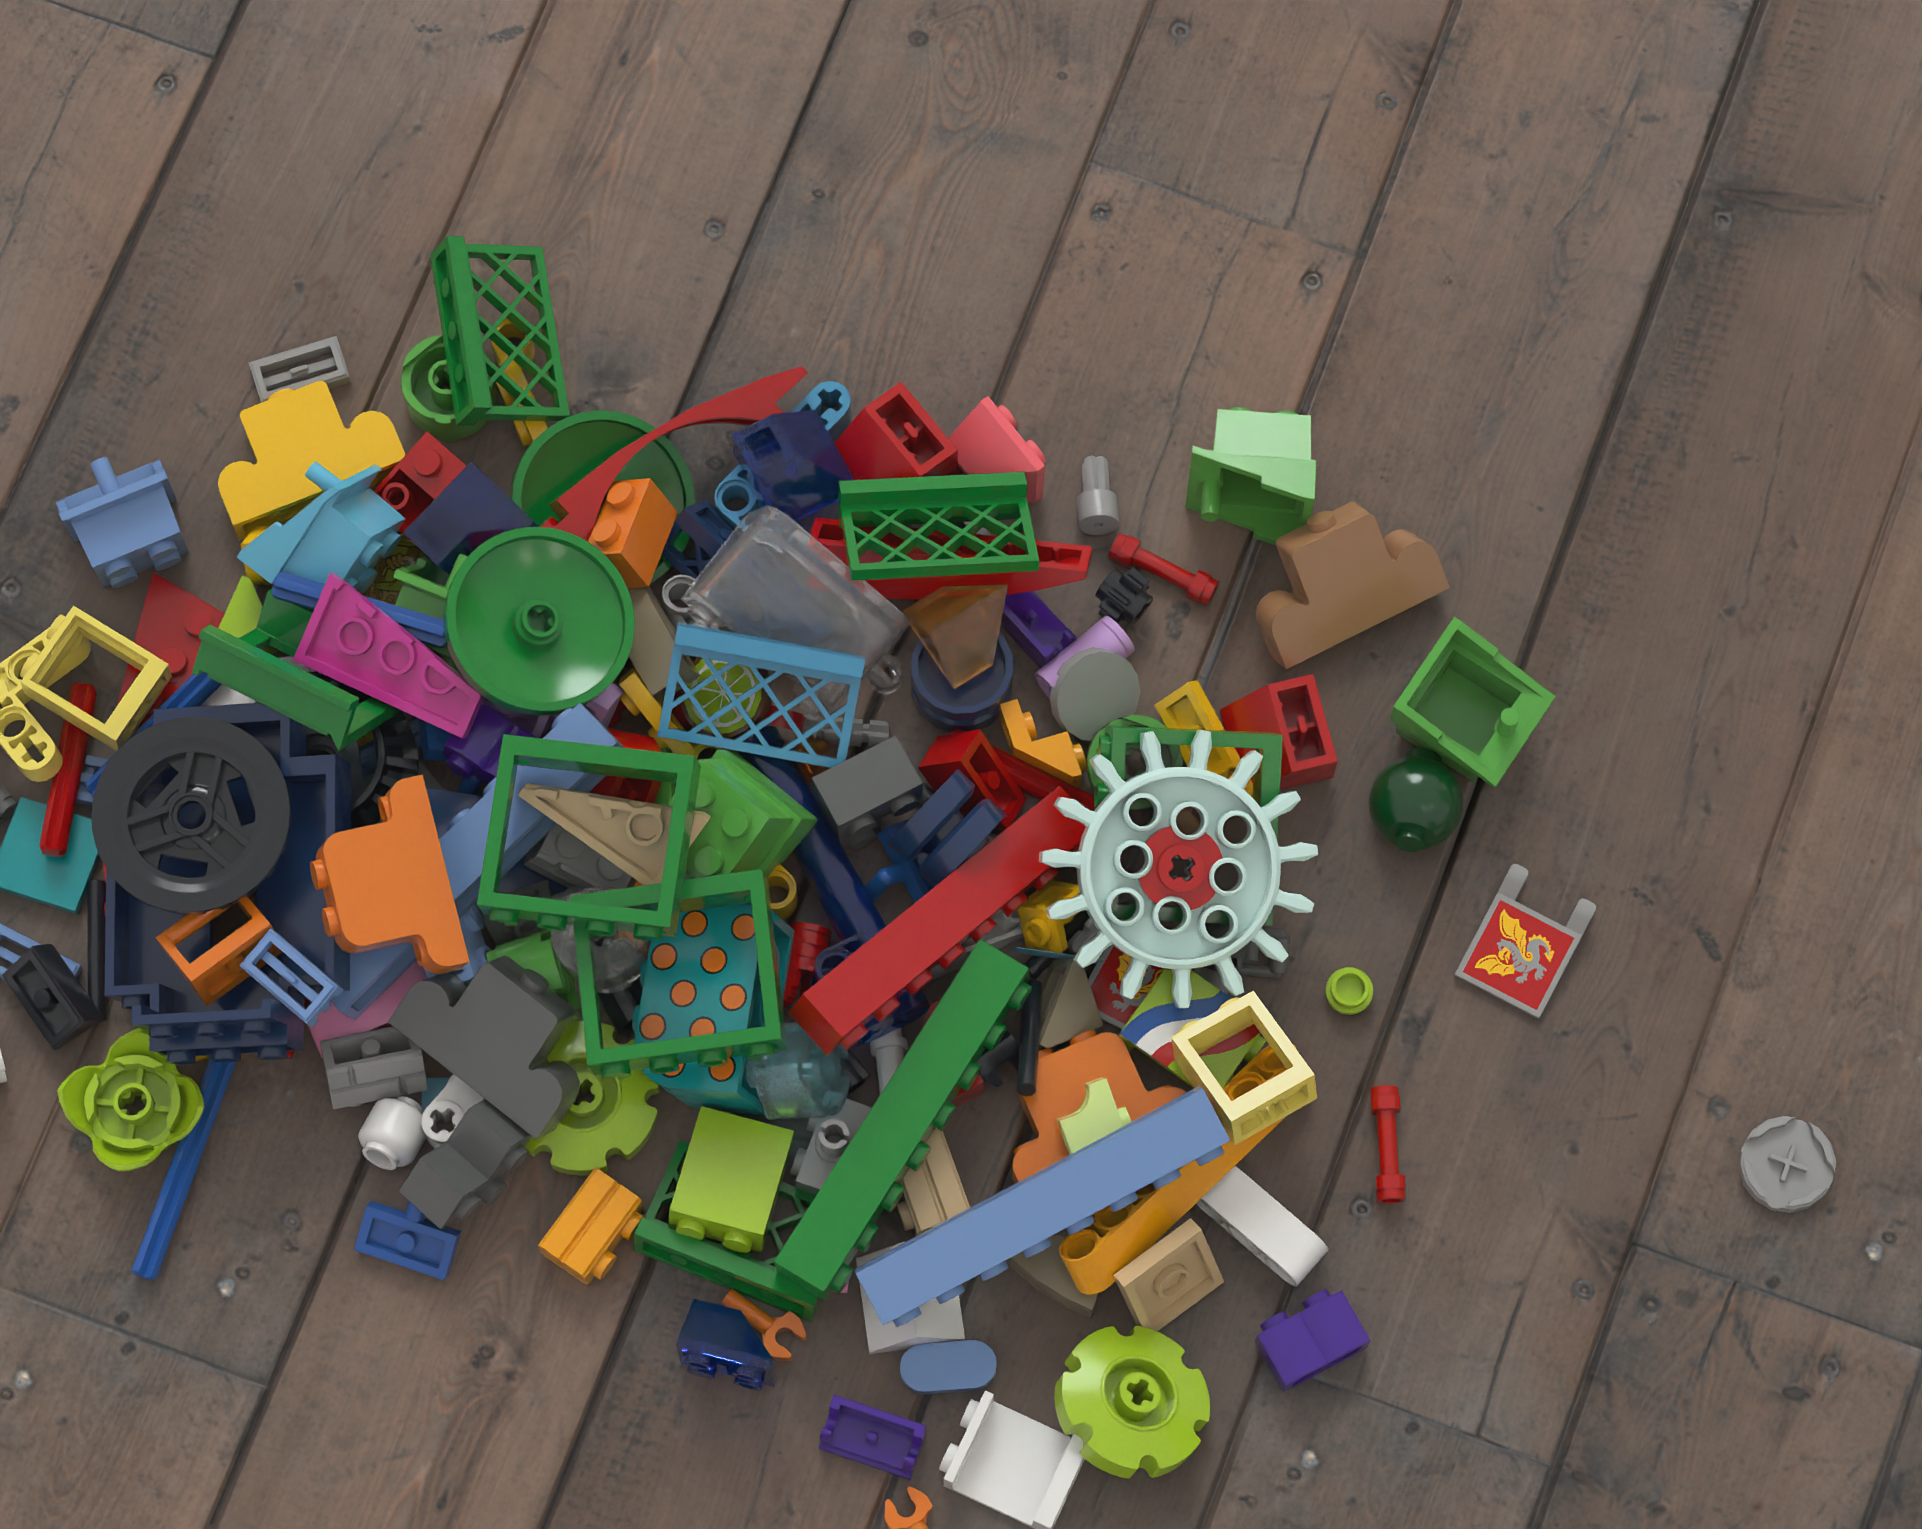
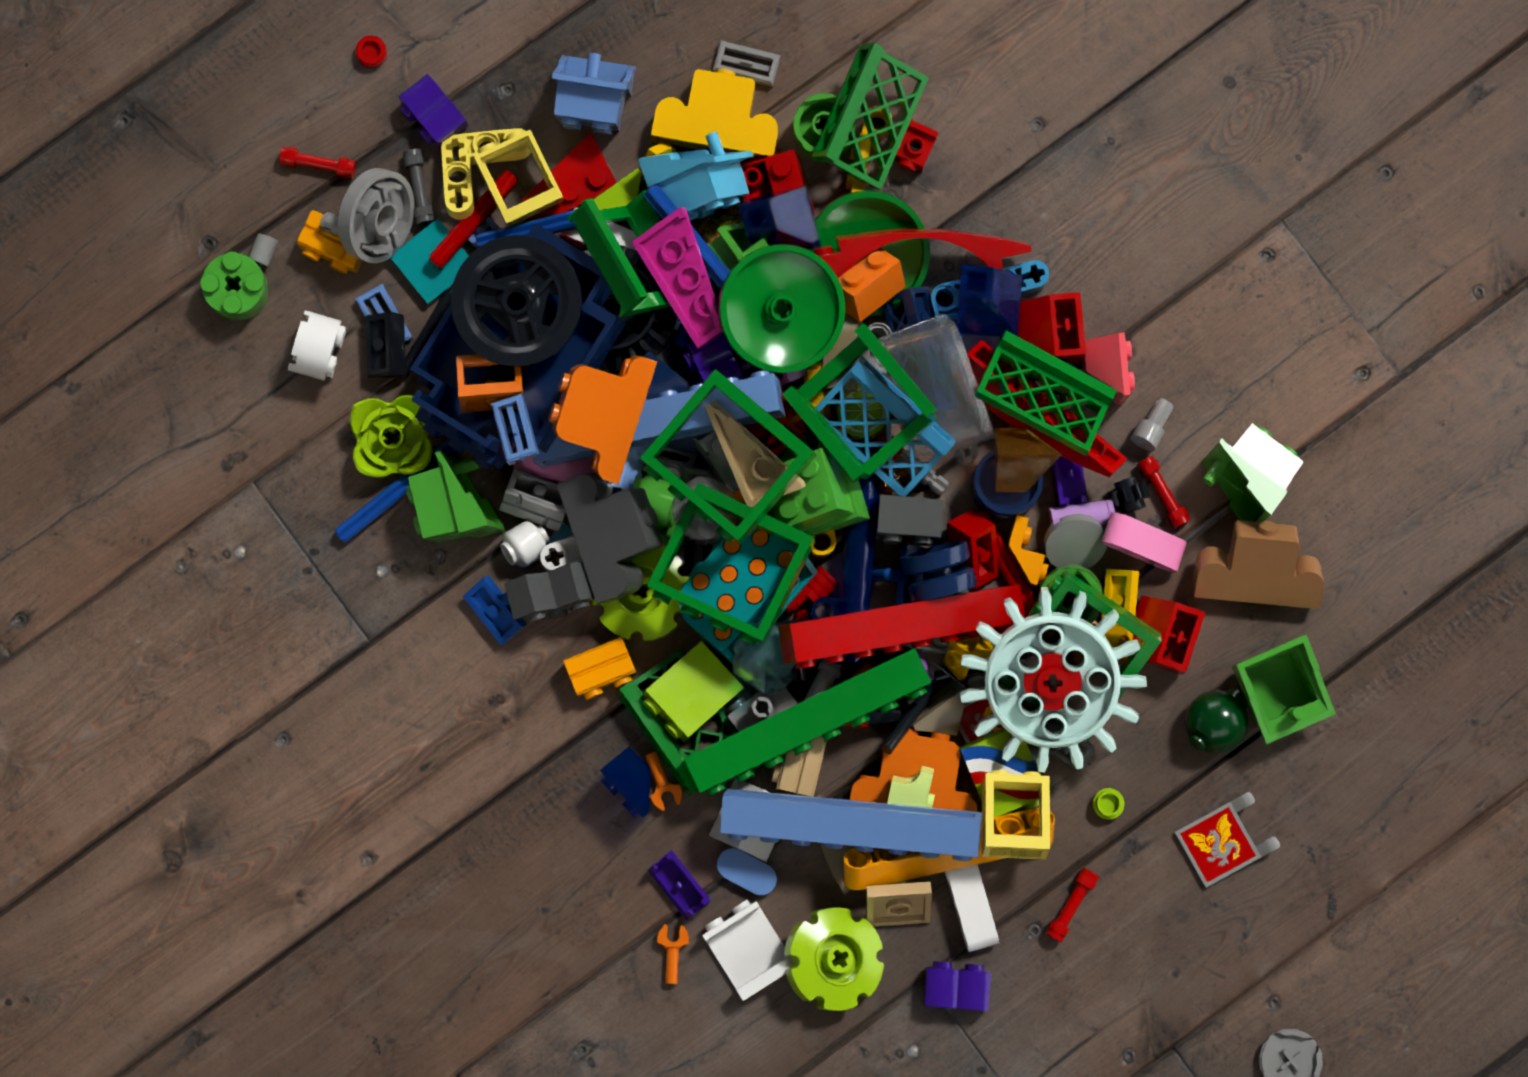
camera: 30 degrees right, 10 degrees up
(263, 1140) = (450, 503): none -> bright green piece
(575, 325) = (916, 160): none -> red brick
(678, 592) = (801, 399): none -> green piece
(1180, 640) = (1144, 542): none -> bright pink beam

